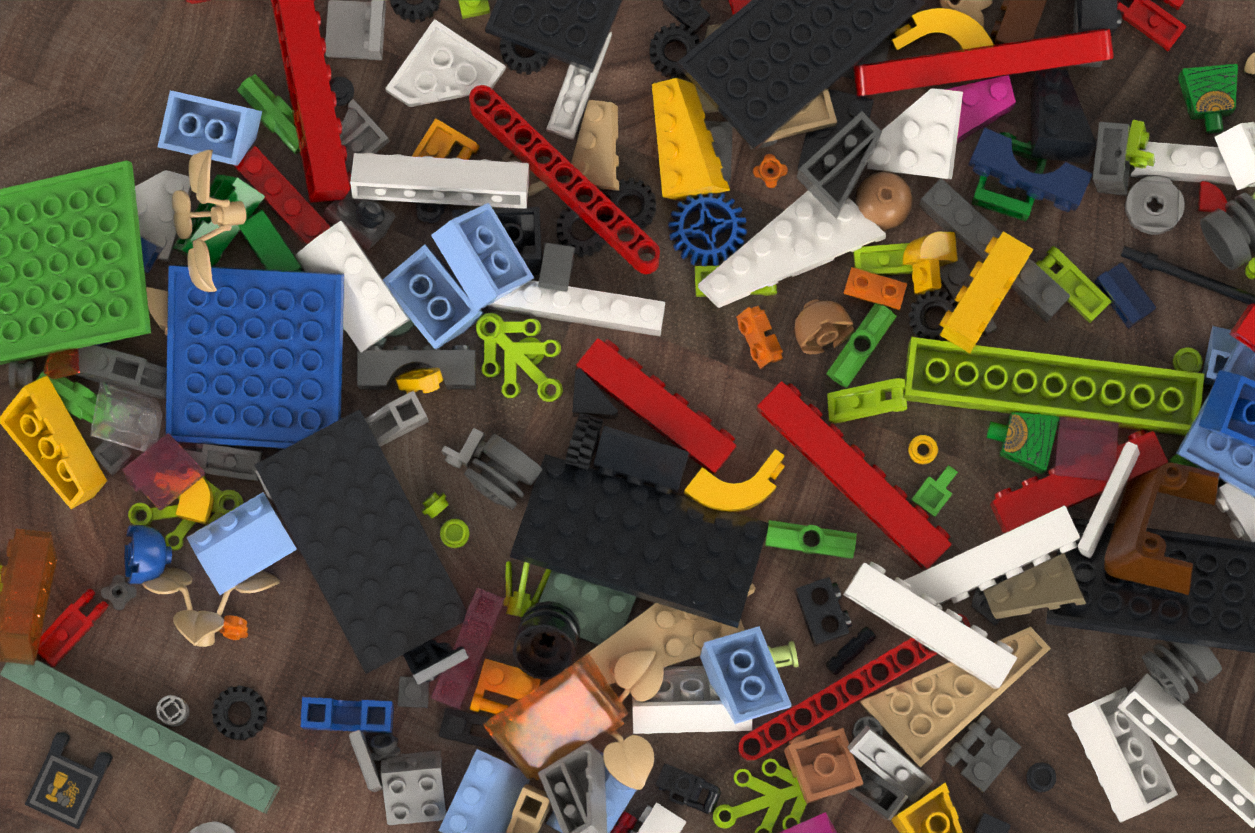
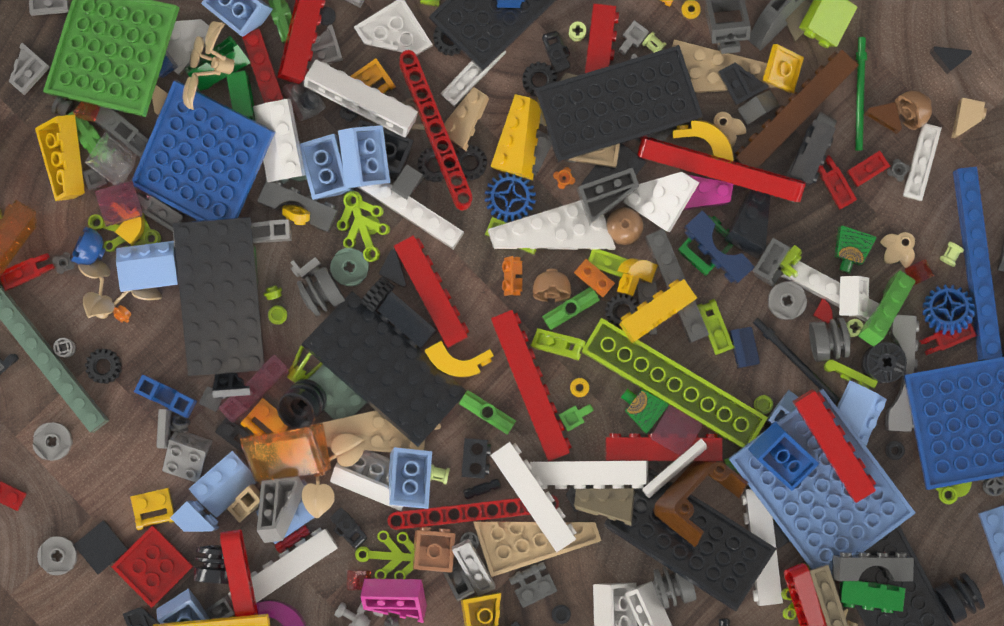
camera: 25 degrees right, 5 degrees up
(527, 406) = (340, 261): none -> sand green plate

